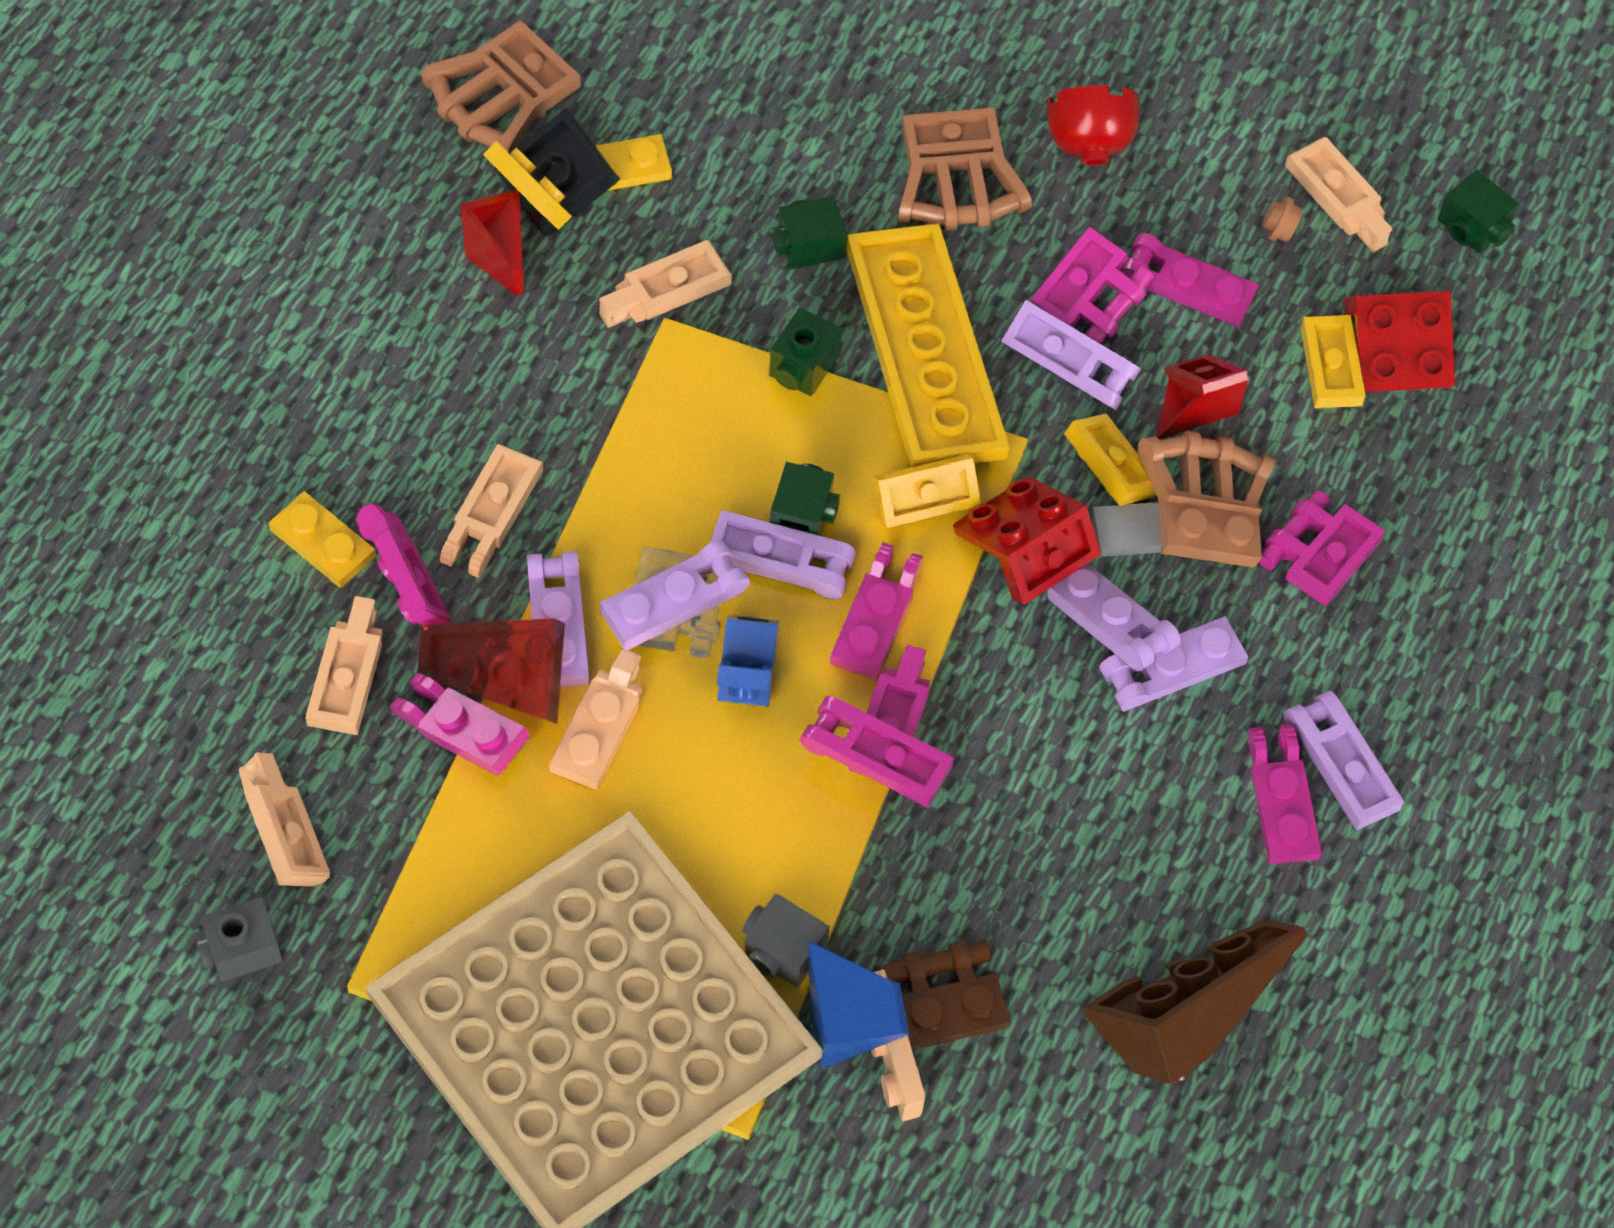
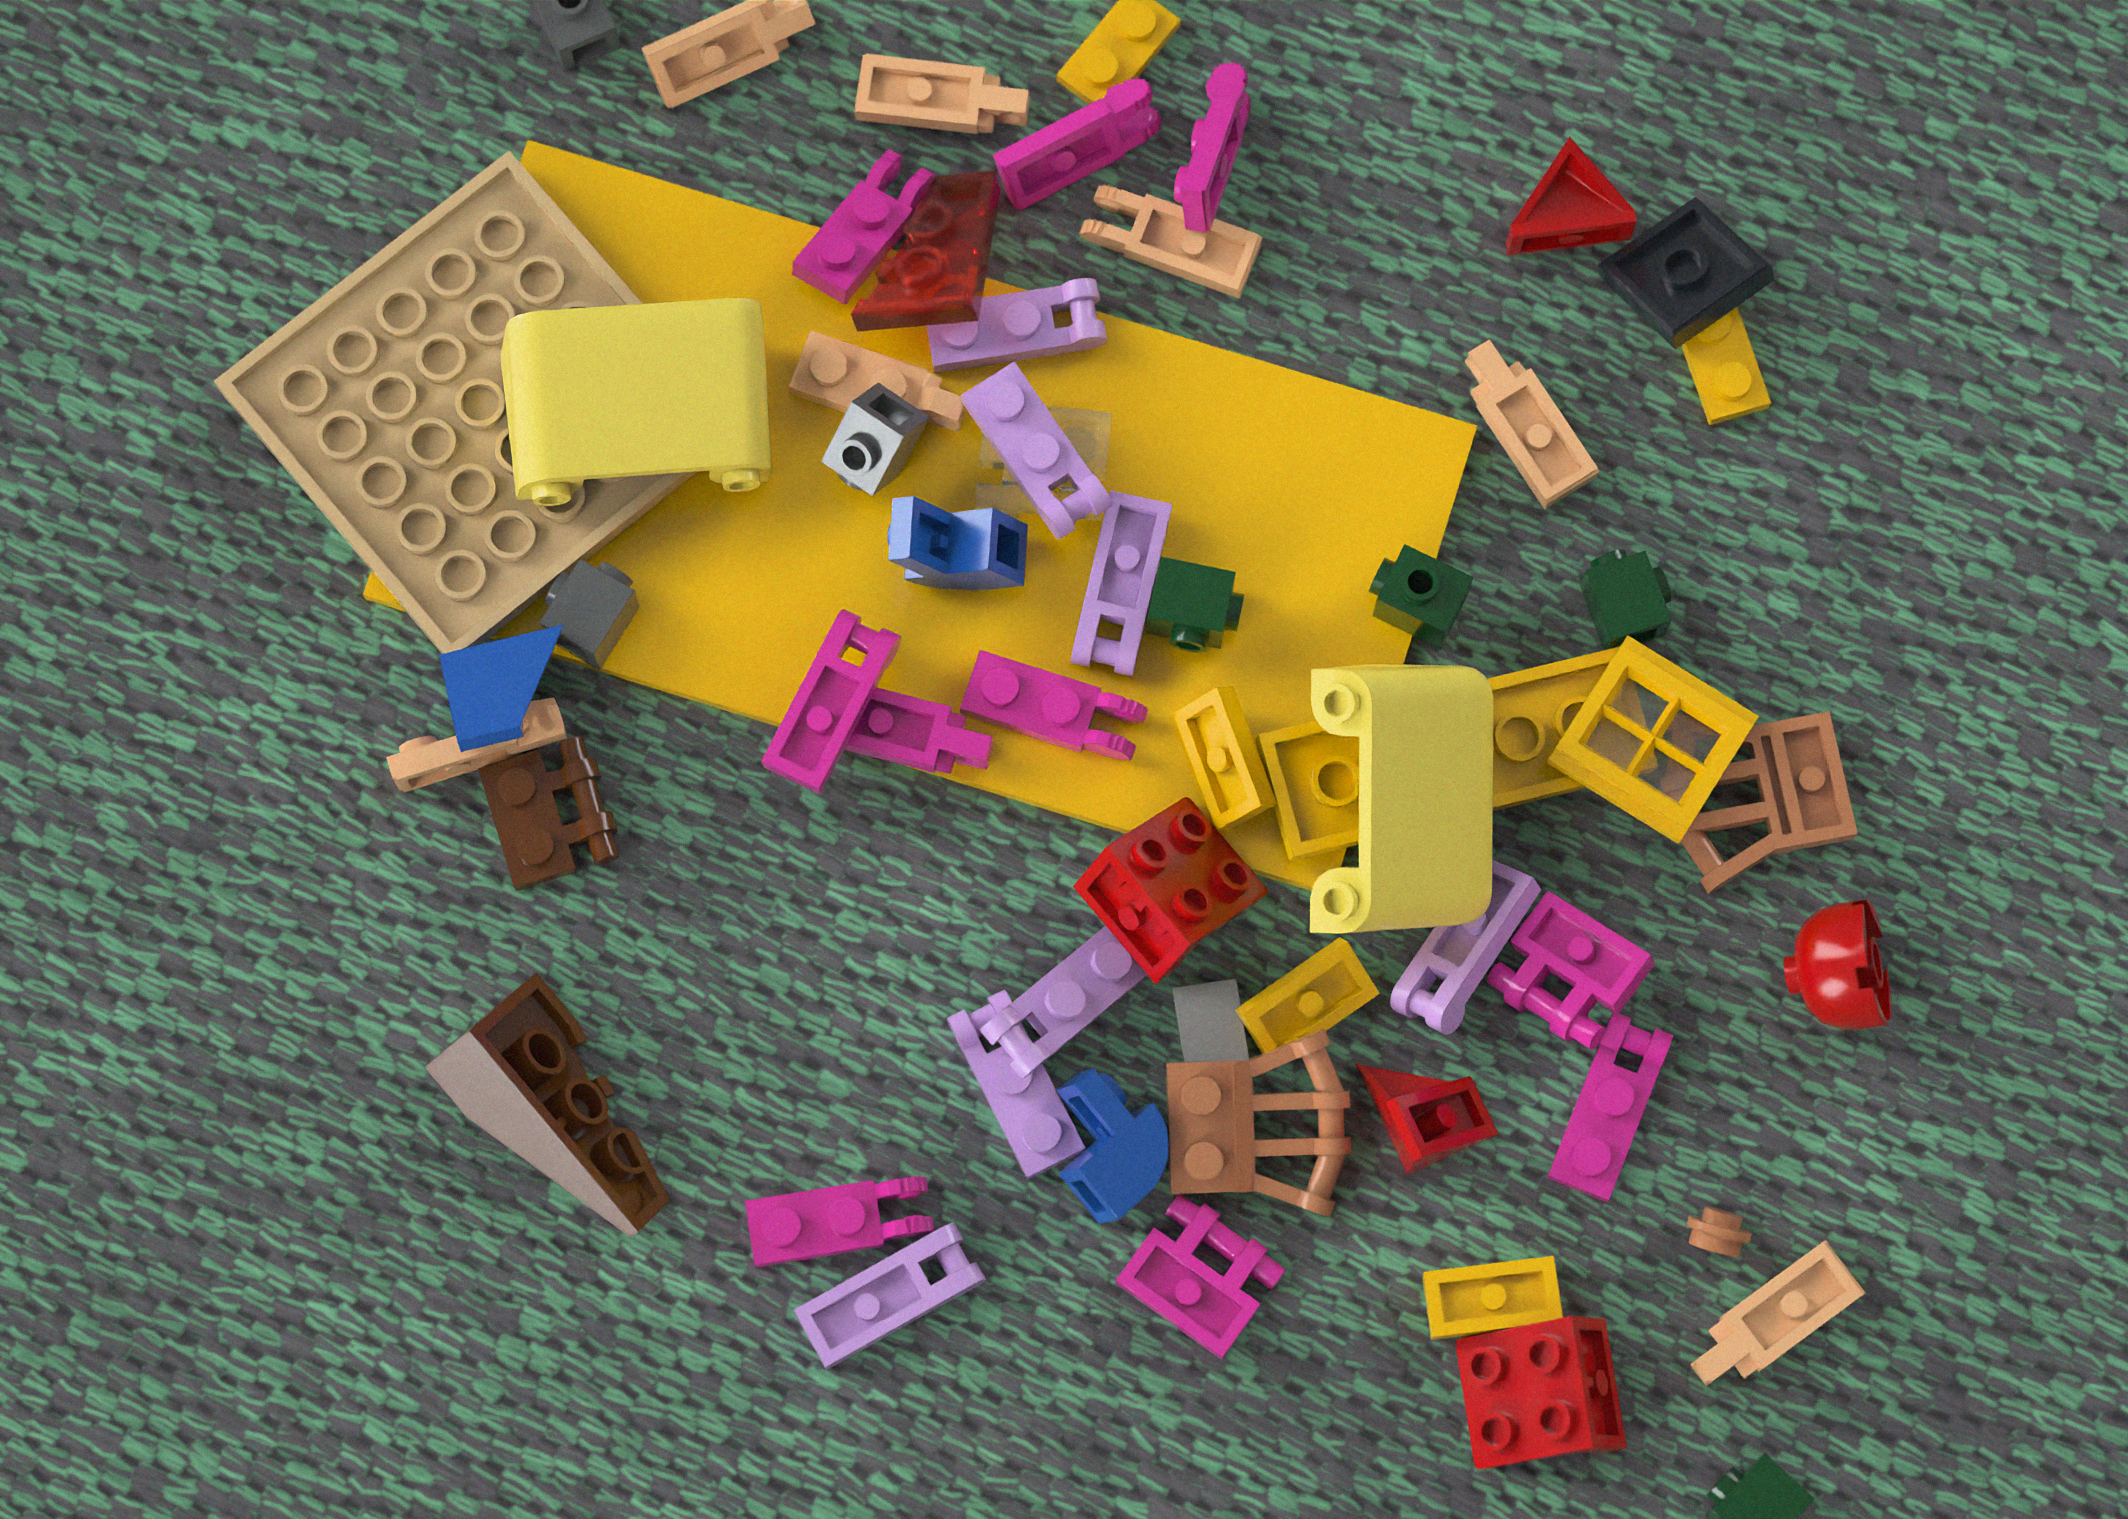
camera: 90 degrees right, 15 degrees up
(422, 463) = (1213, 147): none -> dark pink hinge
(517, 63) = (1851, 223): nougat plate -> none
(518, 171) = (1646, 231): yellow plate -> none
(613, 886) = (636, 395): none -> light yellow windscreen
(654, 712) = (874, 439): none -> dark grey brick
(918, 330) = (1420, 796): none -> light yellow windscreen
(923, 217) = (1652, 739): none -> yellow piece
(1232, 585) = (1127, 1149): none -> blue brick

